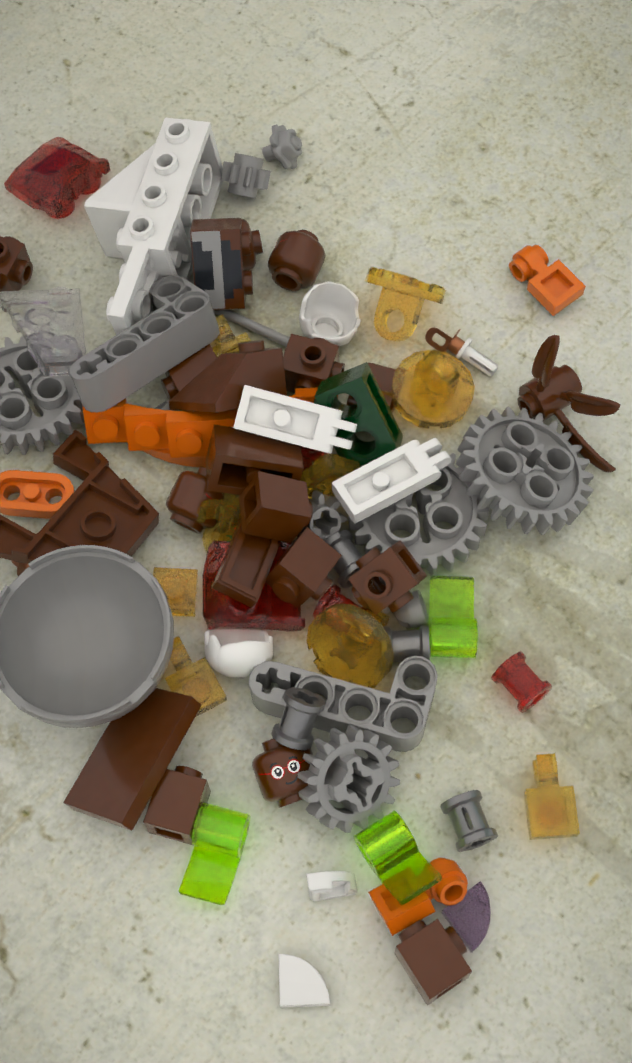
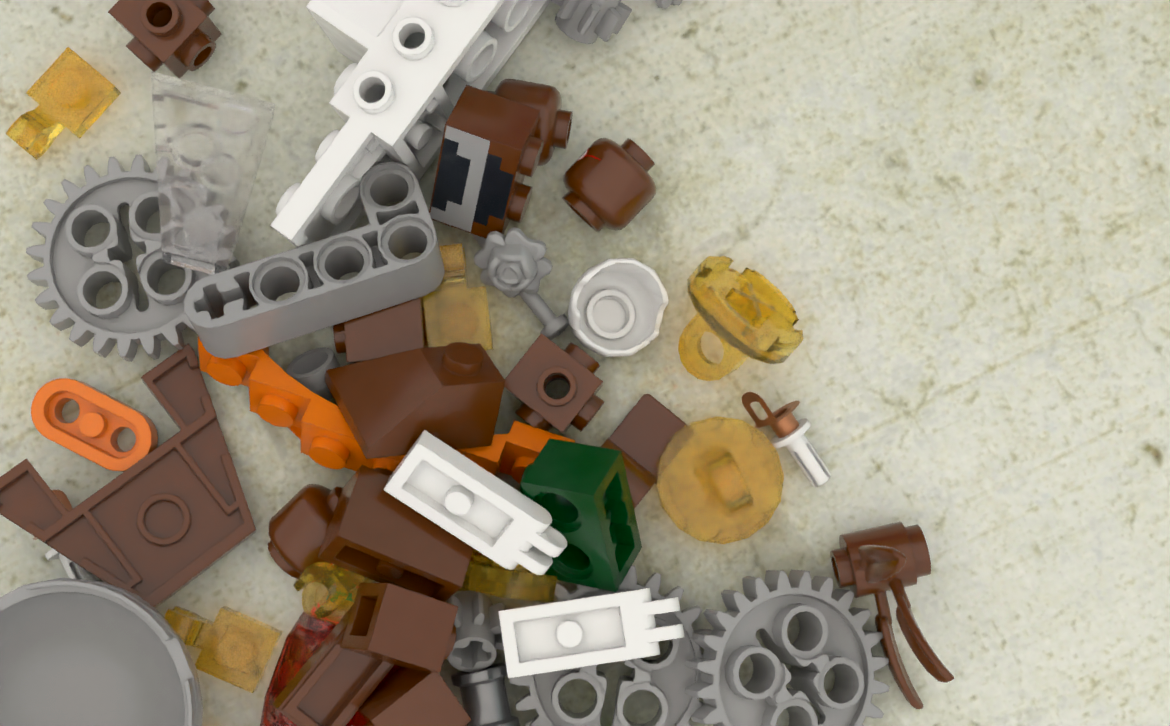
camera: 20 degrees right, 20 degrees up
(257, 314) = (513, 262): none -> light grey plant
(551, 285) = (970, 380): orange plate -> none

